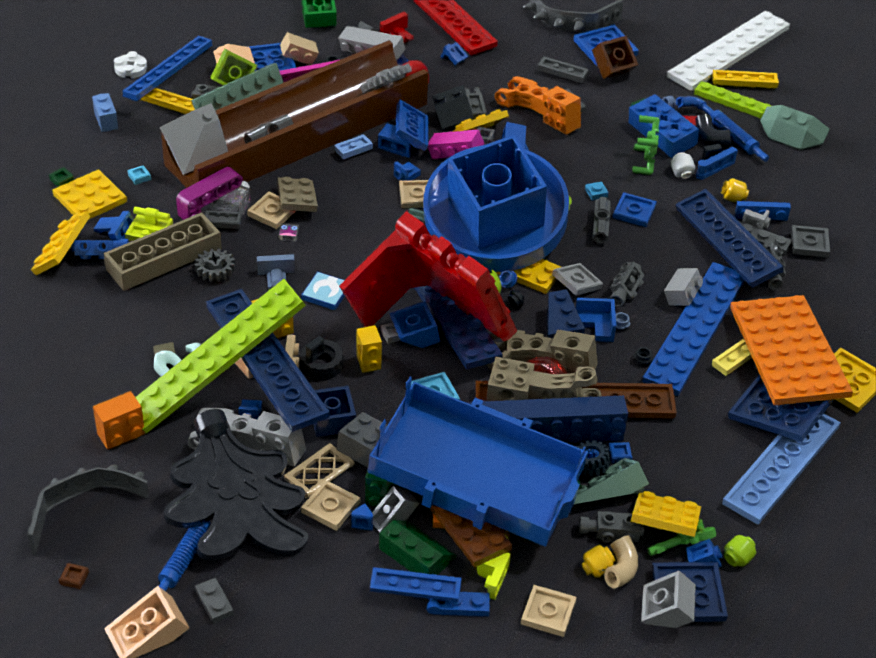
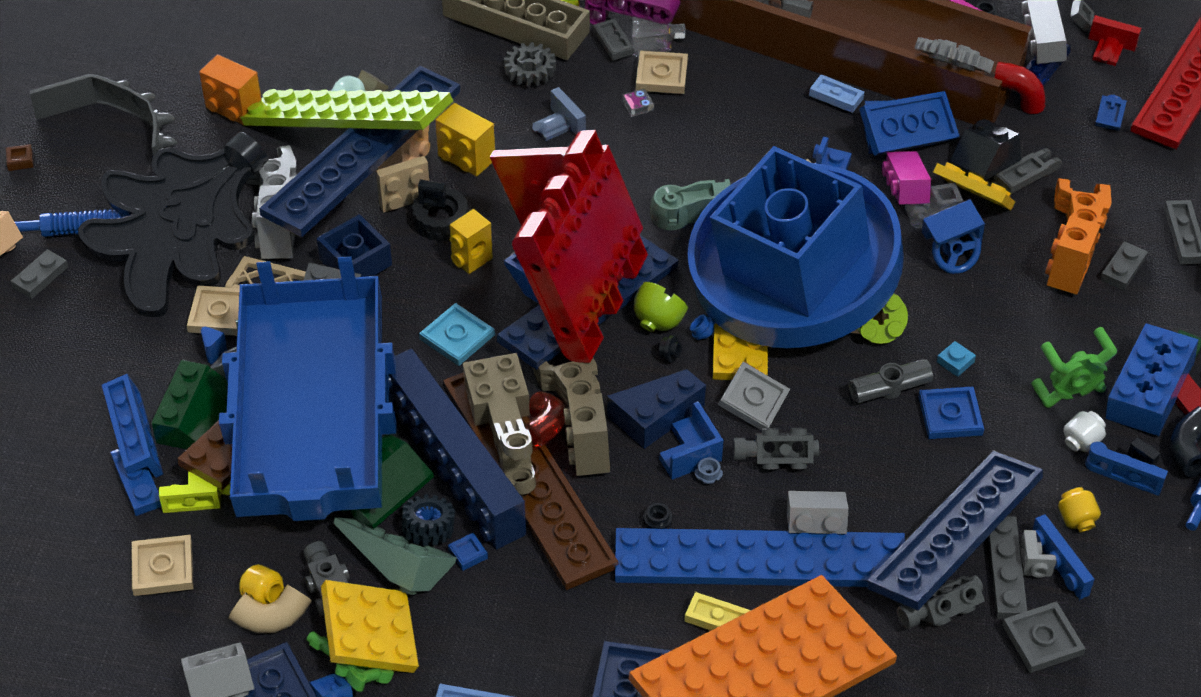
camera: 65 degrees right, 5 degrees up
(297, 194) = (700, 79): dark tan plate -> none

